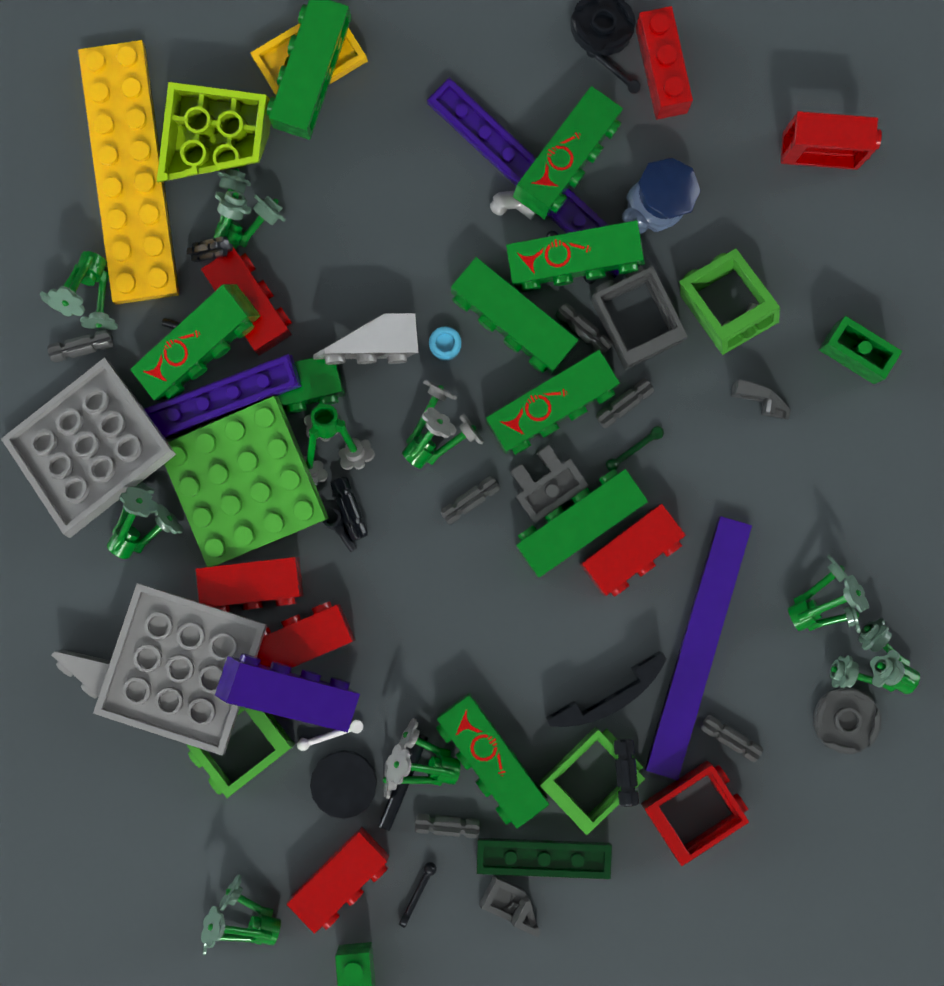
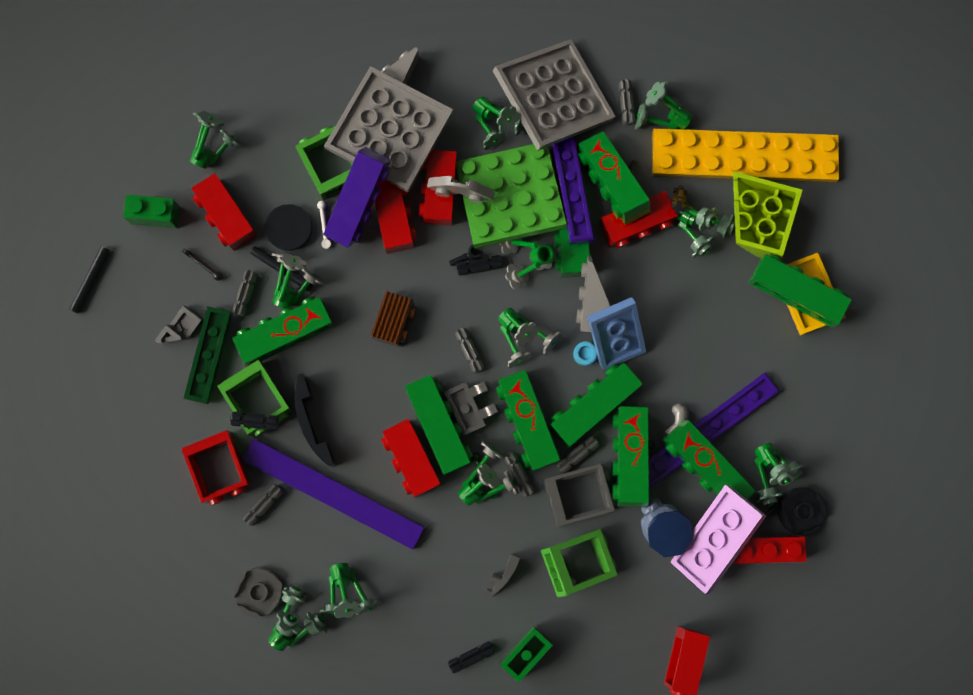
camera: 95 degrees right, 5 degrees down
(251, 571) = (447, 185): none -> light grey plate
(414, 301) = (617, 333): none -> medium blue plate
(447, 612) = (393, 318): none -> reddish brown brick
(565, 52) = (781, 473): none -> plant
(660, 457) = (473, 491): none -> plant
(664, 121) = (718, 539): none -> lavender plate
(875, 422) = (471, 657): none -> black axle

